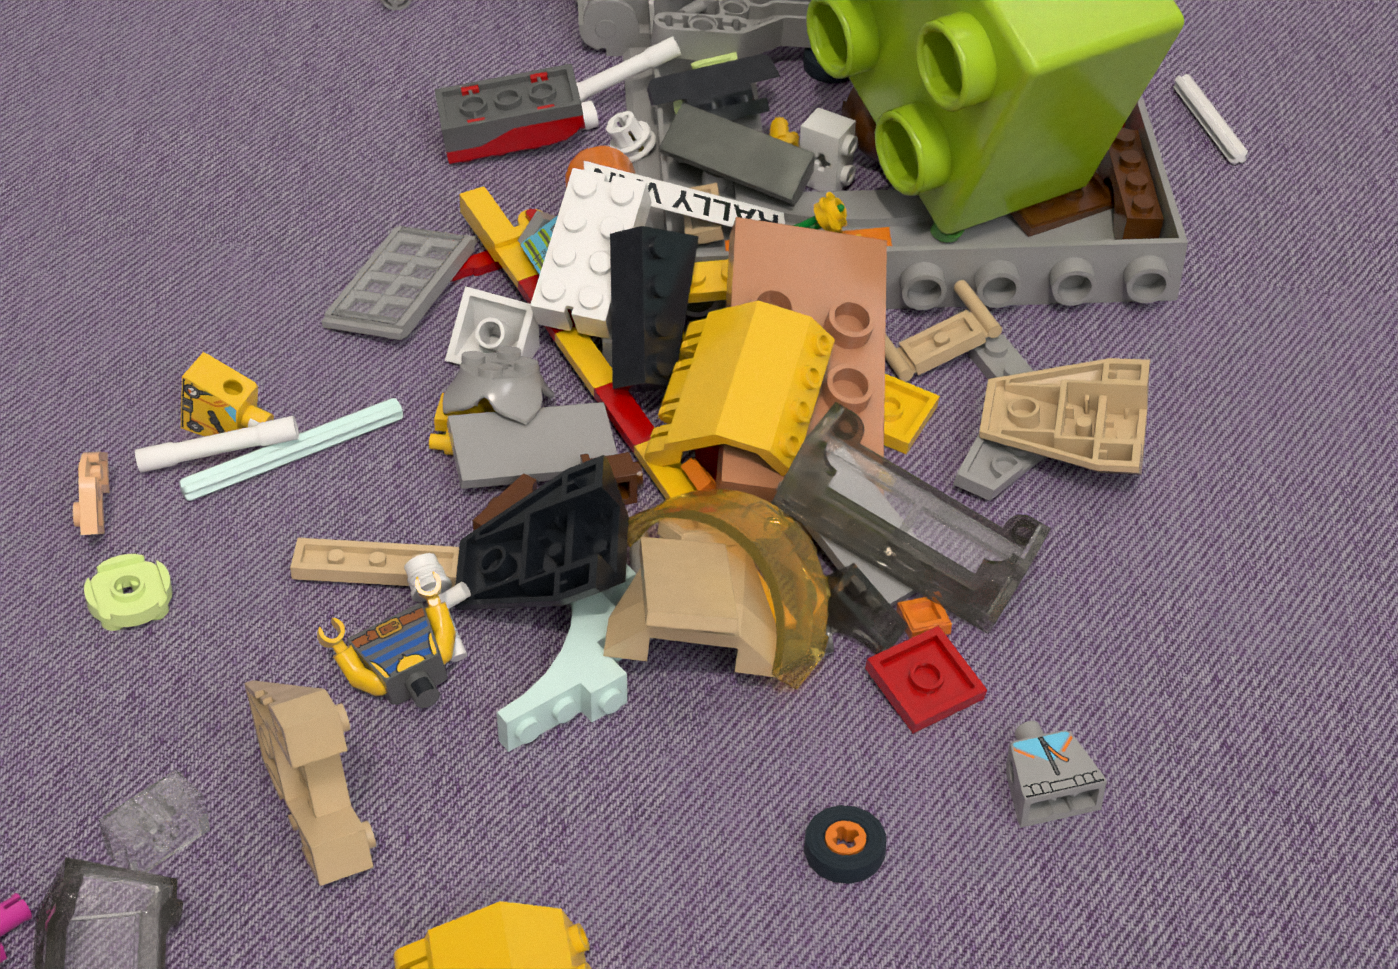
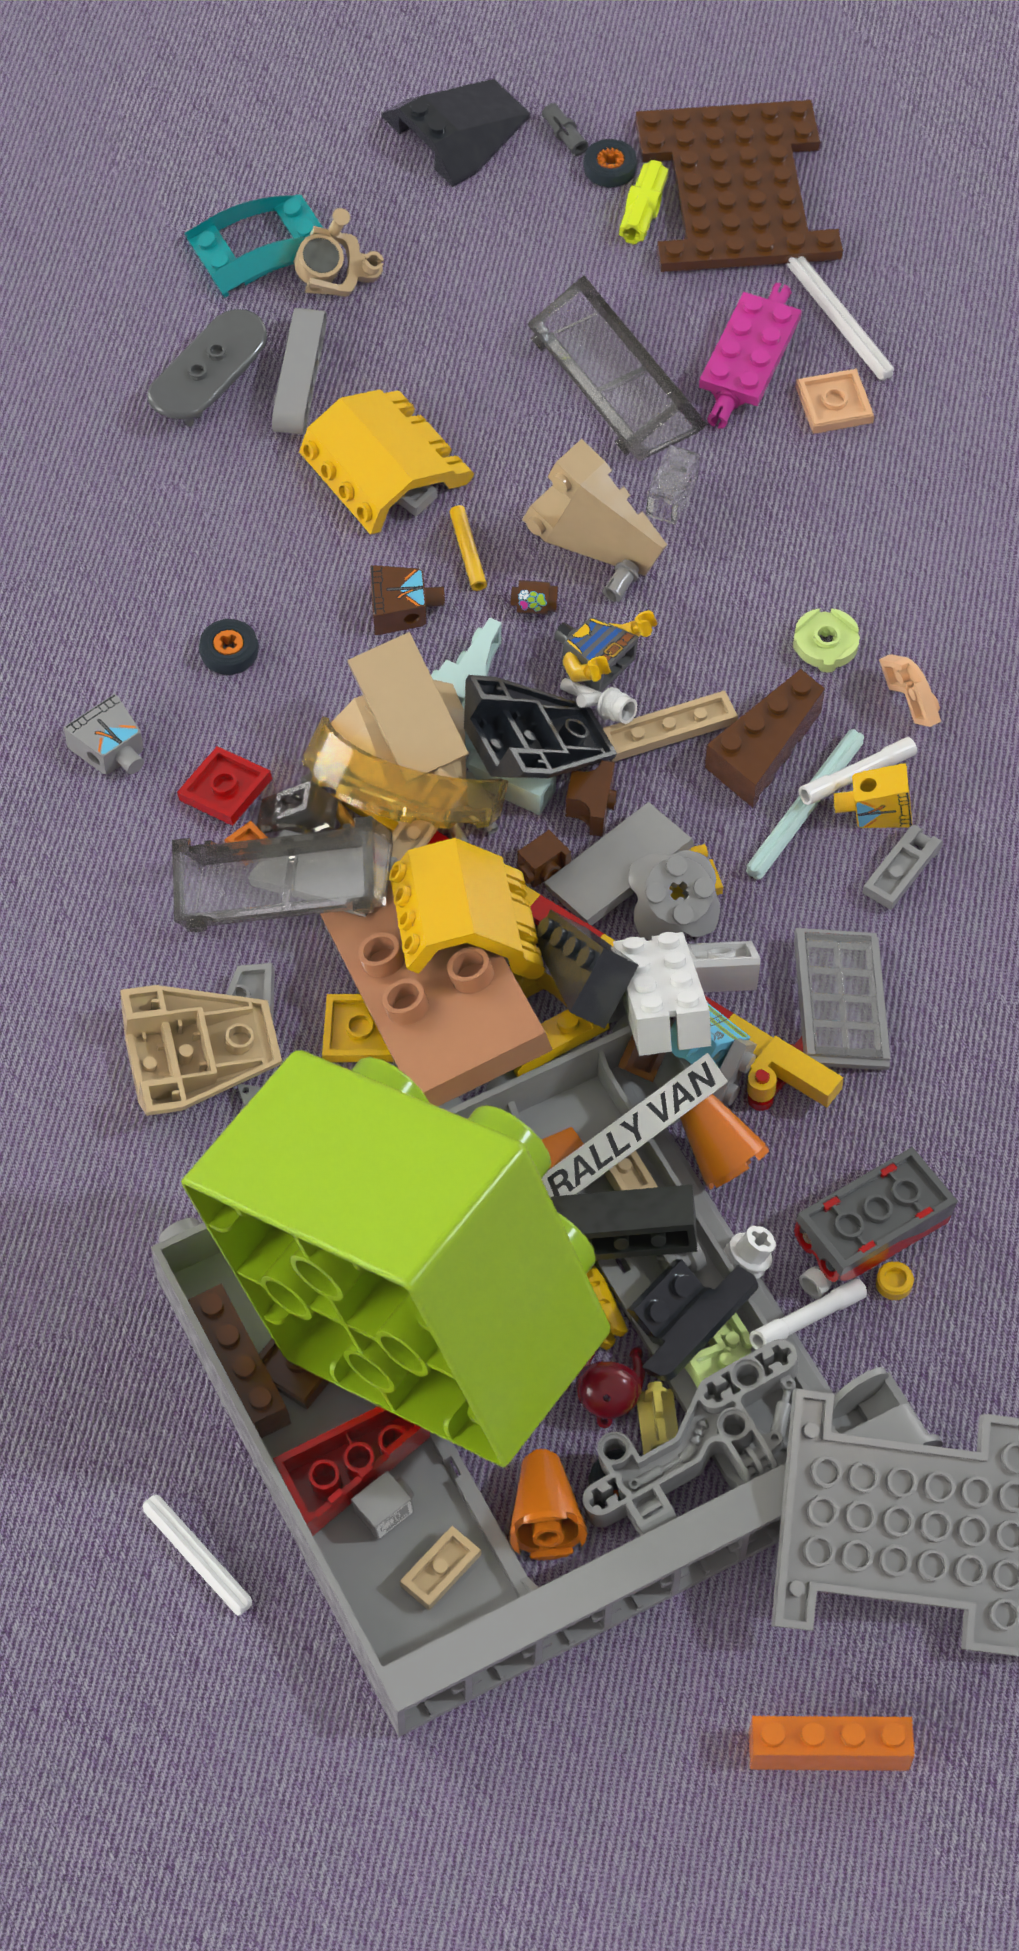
camera: 155 degrees right, 15 degrees up
(261, 353) = (901, 867): none -> light grey plate
(268, 512) = (763, 738): none -> reddish brown wedge
(428, 753) = (534, 597): none -> reddish brown brick
(466, 860) = (468, 548): none -> yellow piece
(596, 812) = (401, 598): none -> reddish brown torso
(791, 71) = (656, 1416): none -> light yellow hinge
(806, 88) = (610, 1379): none -> dark red hair

